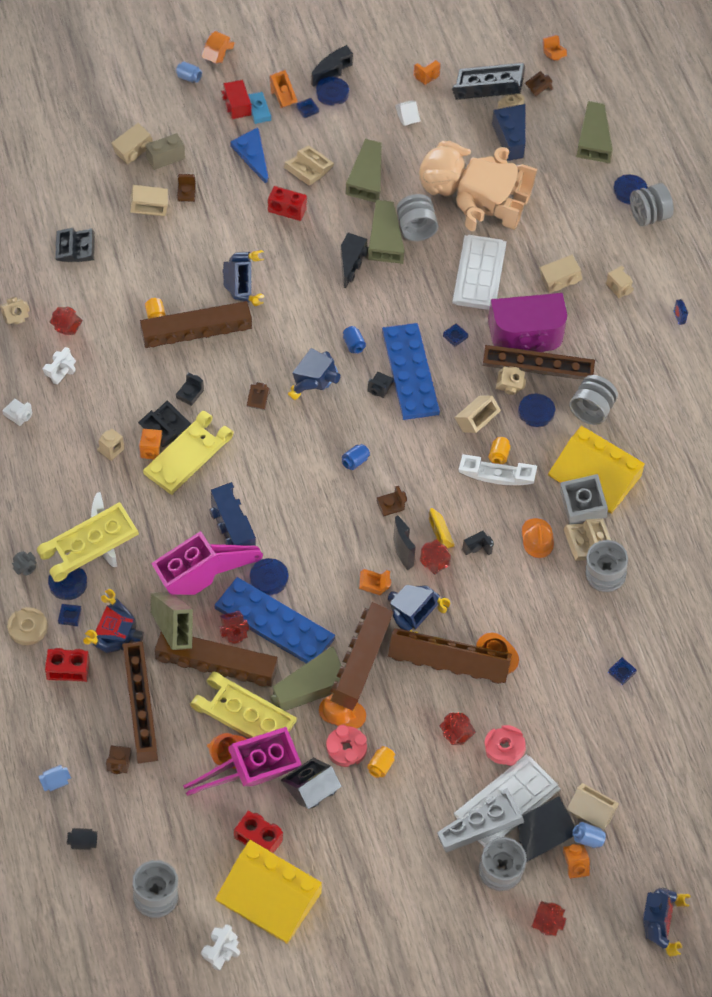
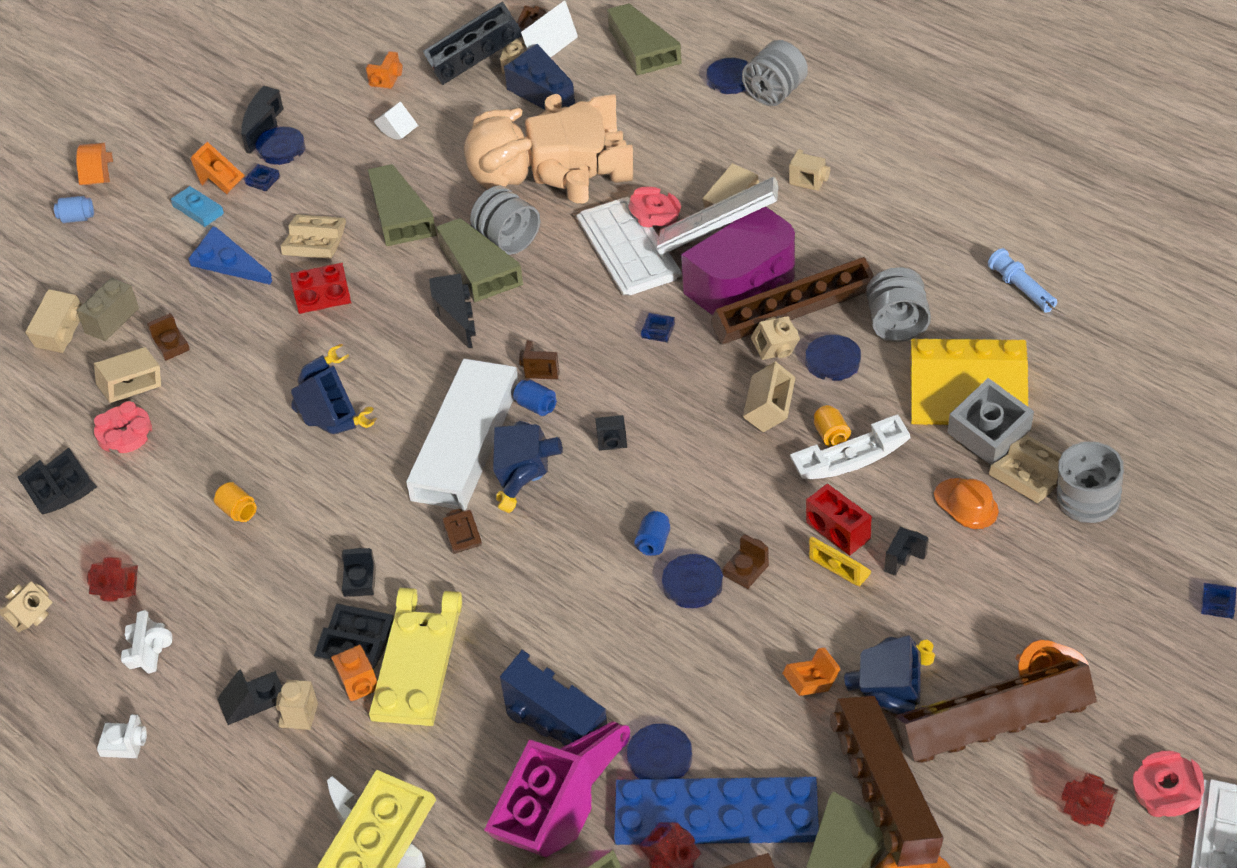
camera: 25 degrees left, 10 degrees down
(92, 426) = (245, 699): none -> black slope
(123, 224) = (127, 415): none -> coral plate
(196, 324) = (304, 489): reddish brown brick -> none
(237, 99) = (162, 208): red brick -> none
(289, 345) = (462, 434): none -> white brick
(356, 495) = (692, 580): none -> clear blue tile
(371, 320) = (539, 363): none -> reddish brown bracket
(404, 546) = (811, 602): black slope -> none
(410, 371) = (639, 396): blue plate -> none
(435, 556) = (864, 595): clear red brick -> none
(456, 506) = (838, 519): none -> red brick
(504, 261) = (653, 207): none -> coral plate
(535, 284) = (718, 215): none -> white piece
(542, 99) = (551, 31): none -> white sticker
(680, 311) = (906, 165): clear blue tile -> none
(683, 417) = (1014, 273): none -> light blue pin

